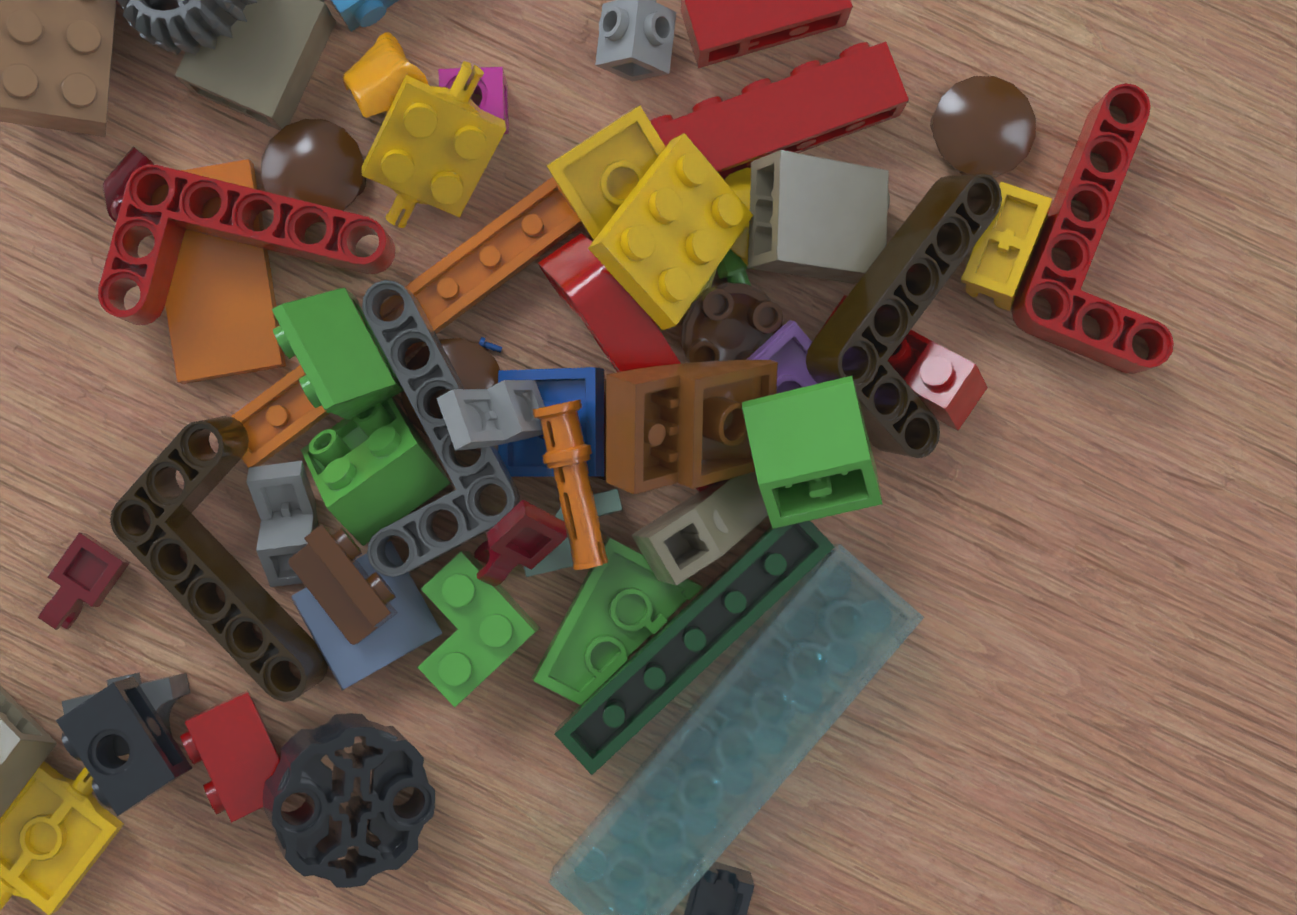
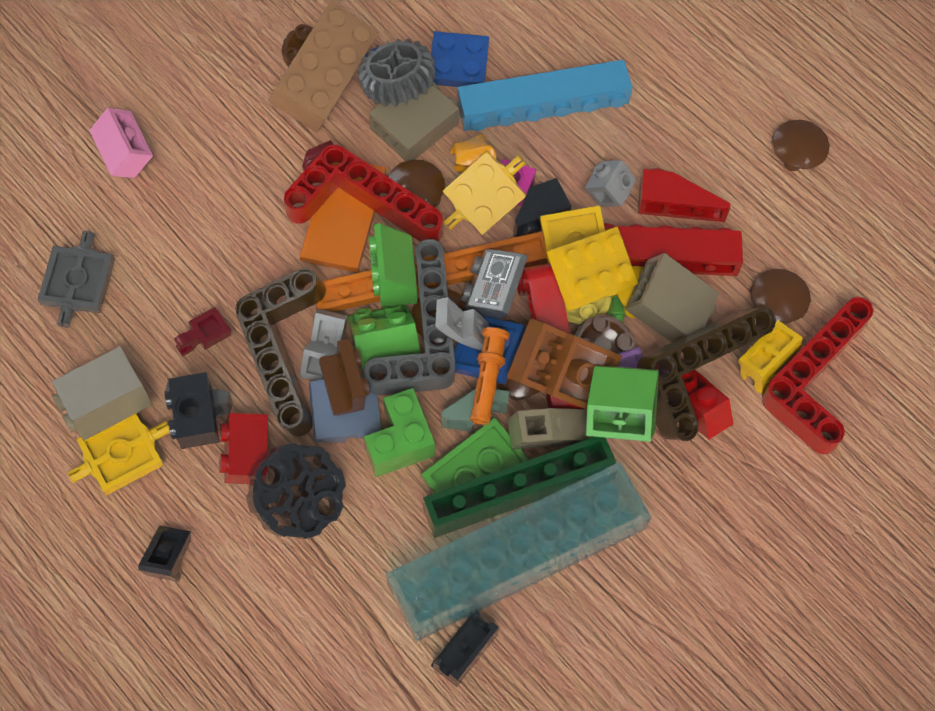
camera: 20 degrees right, 20 degrees down
(516, 316) = (493, 283): none -> dark grey slope
(519, 538) = (448, 389): dark red plate -> none
(540, 127) = (540, 201): none -> black slope

